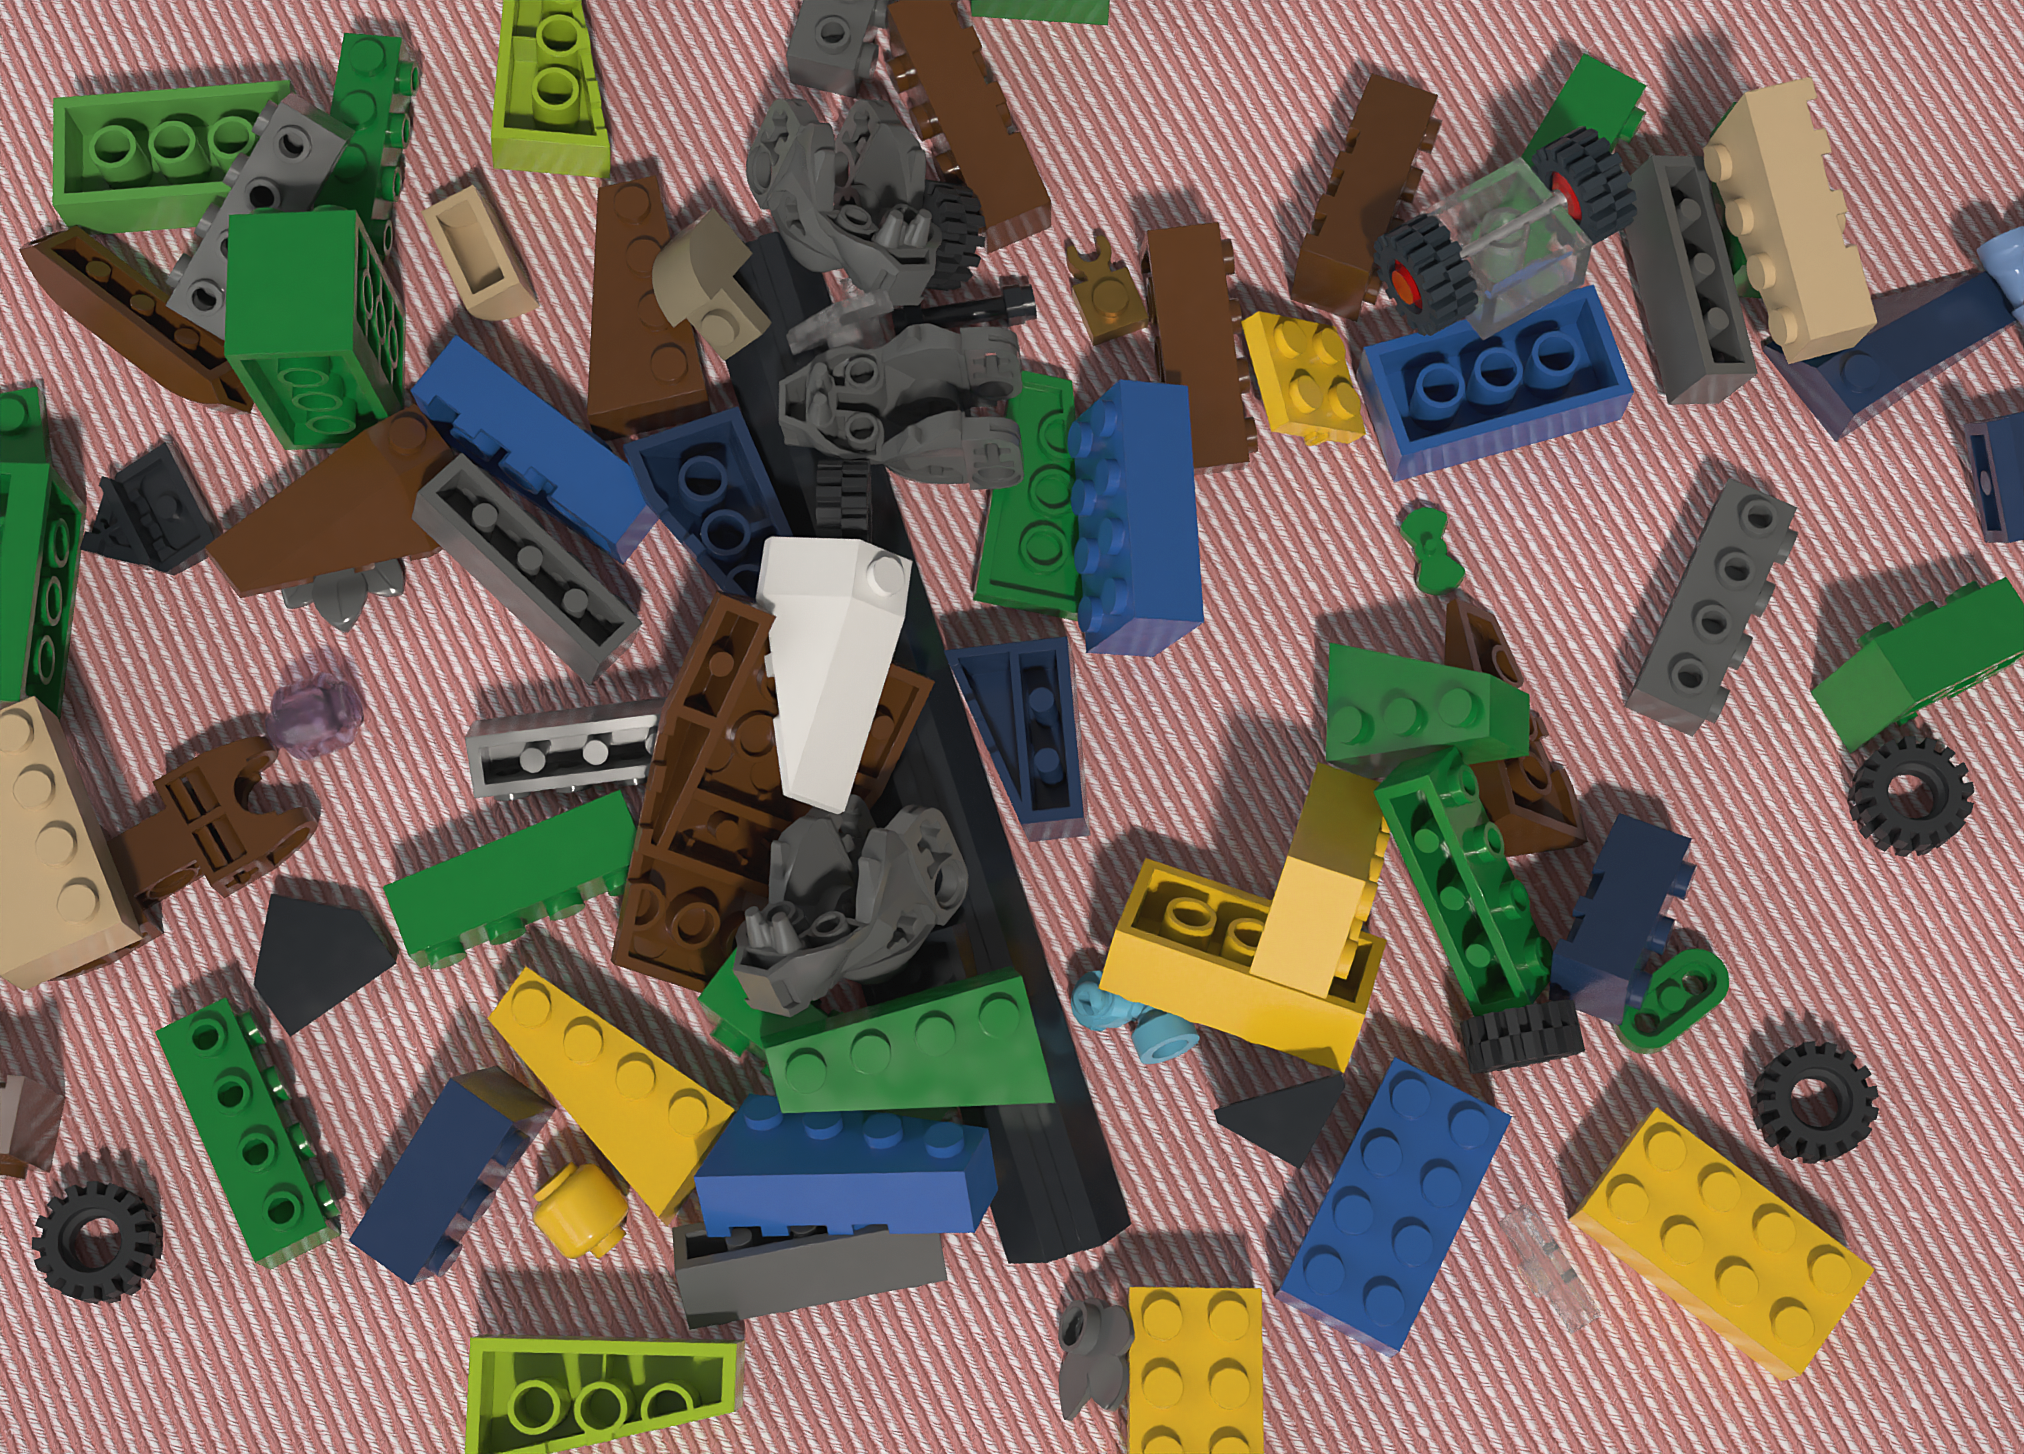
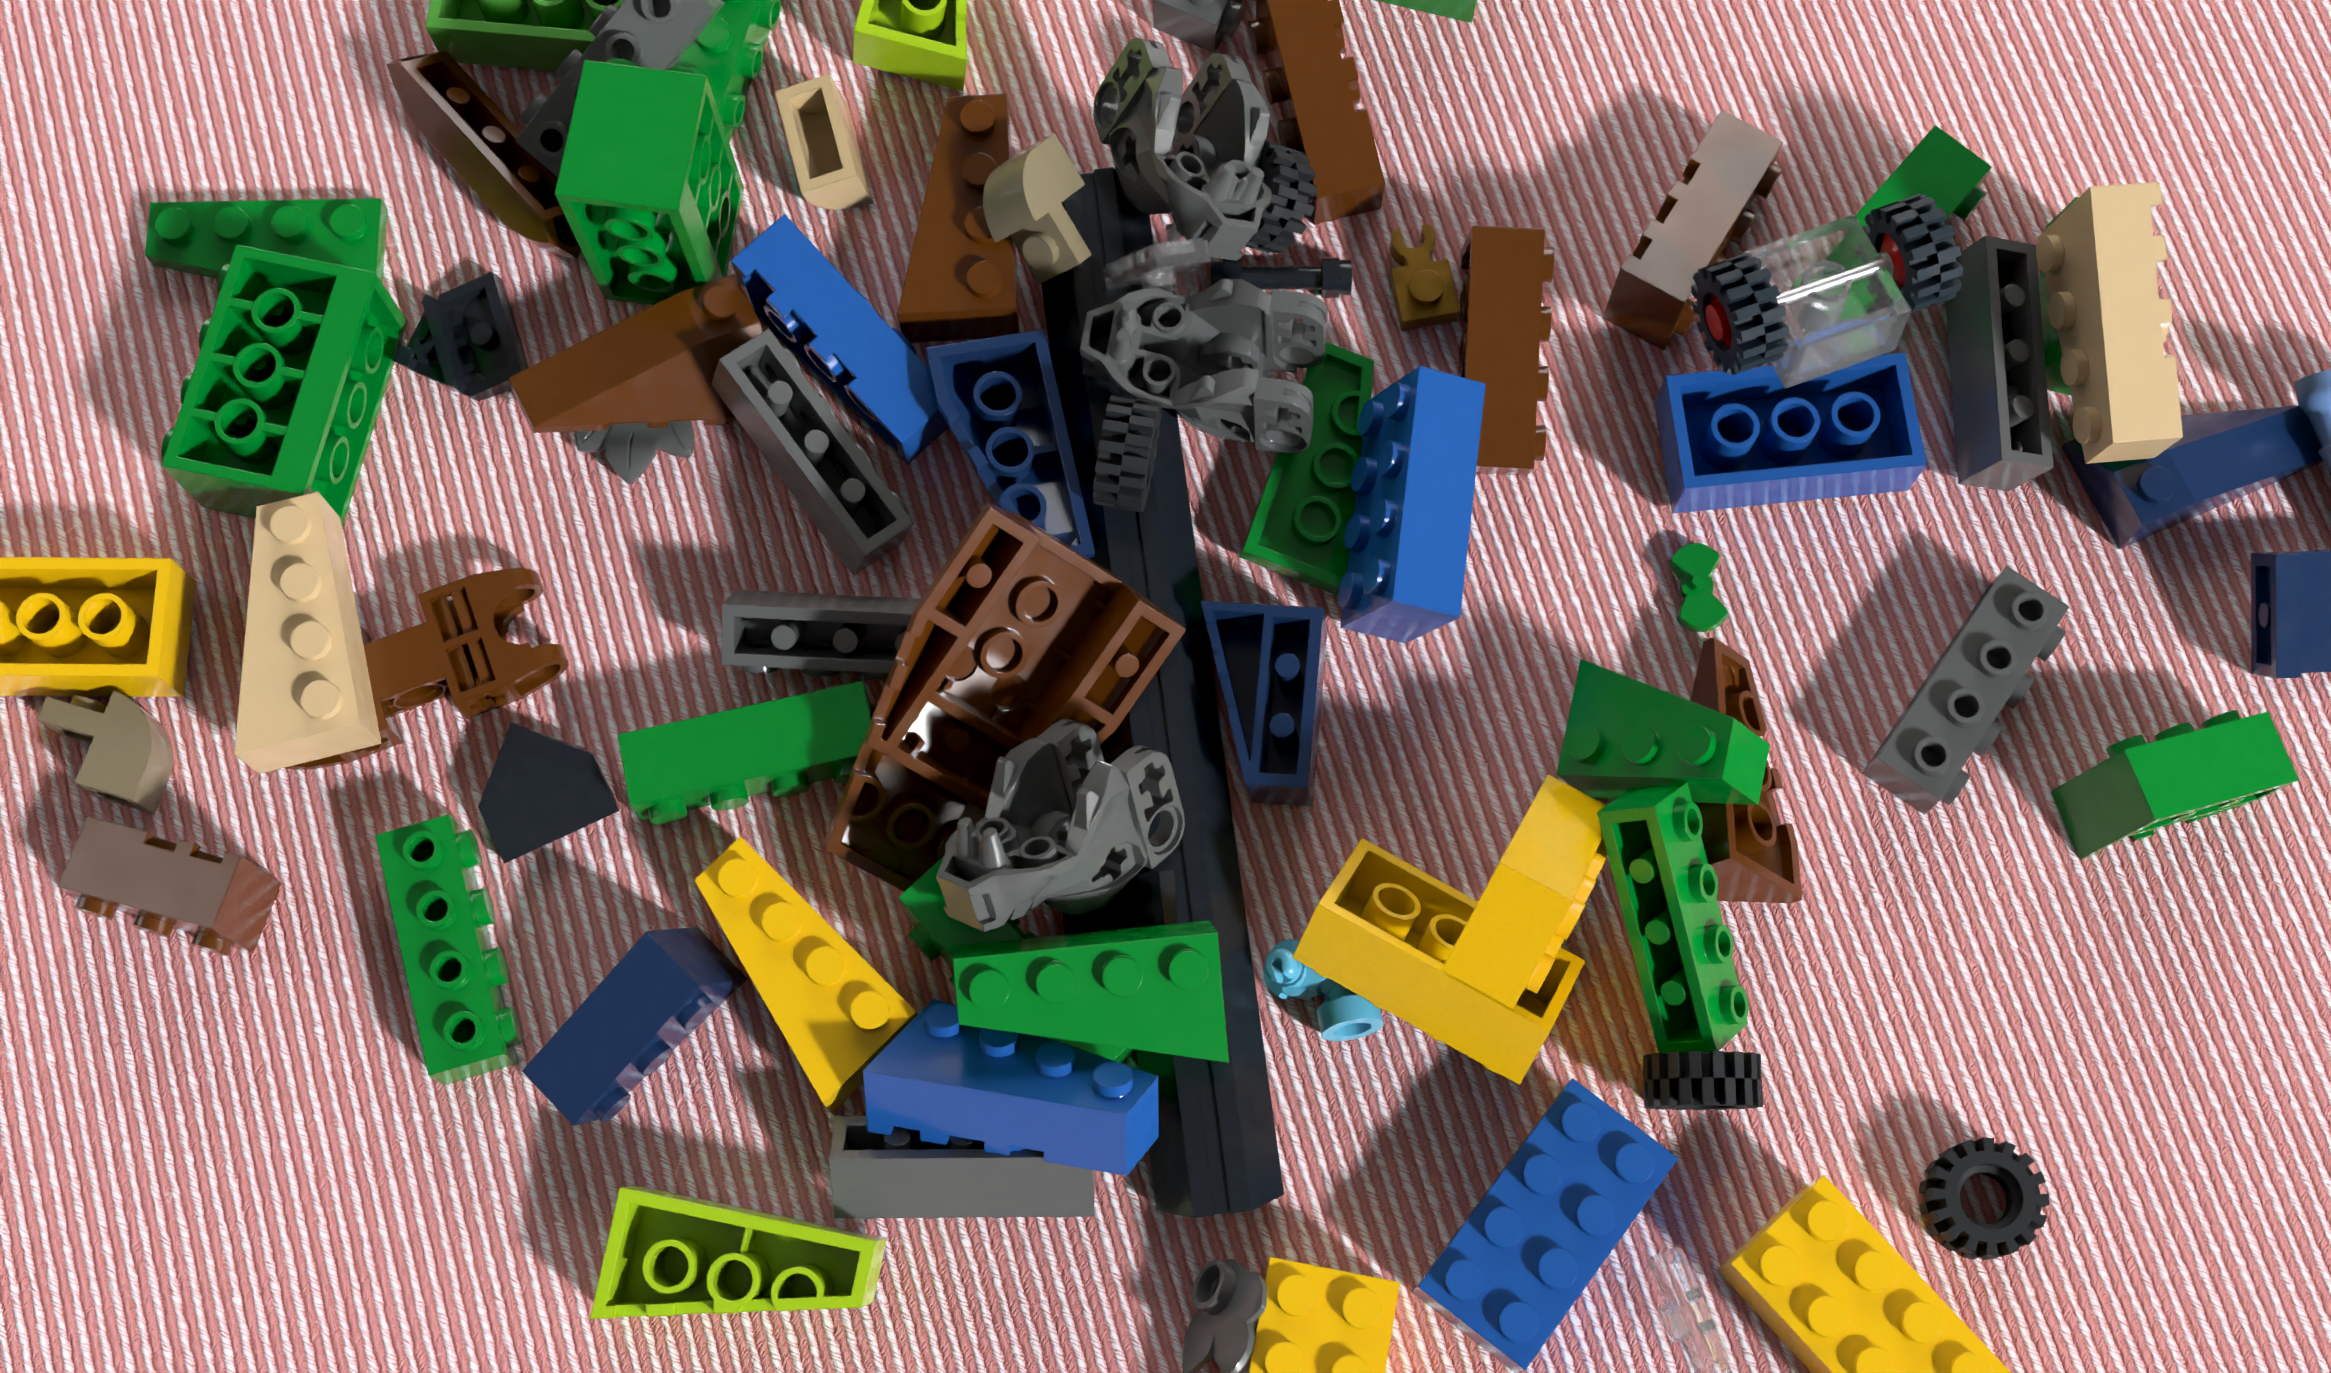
camera: 10 degrees right, 0 degrees up
(66, 1220) = (255, 1006): black tyre -> none
(314, 716) = (584, 559): clear purple head -> none
(580, 1211) = (751, 1083): yellow head -> none
(829, 655) = (1086, 585): white wedge -> none
(1285, 1119) = (1452, 1119): black slope -> none
(1304, 378) = (1601, 397): yellow plate -> none
(1622, 920) = (1822, 983): dark blue wedge -> none
(1672, 1005) = (1854, 1073): green plate -> none
(1941, 776) = (2160, 888): black tyre -> none

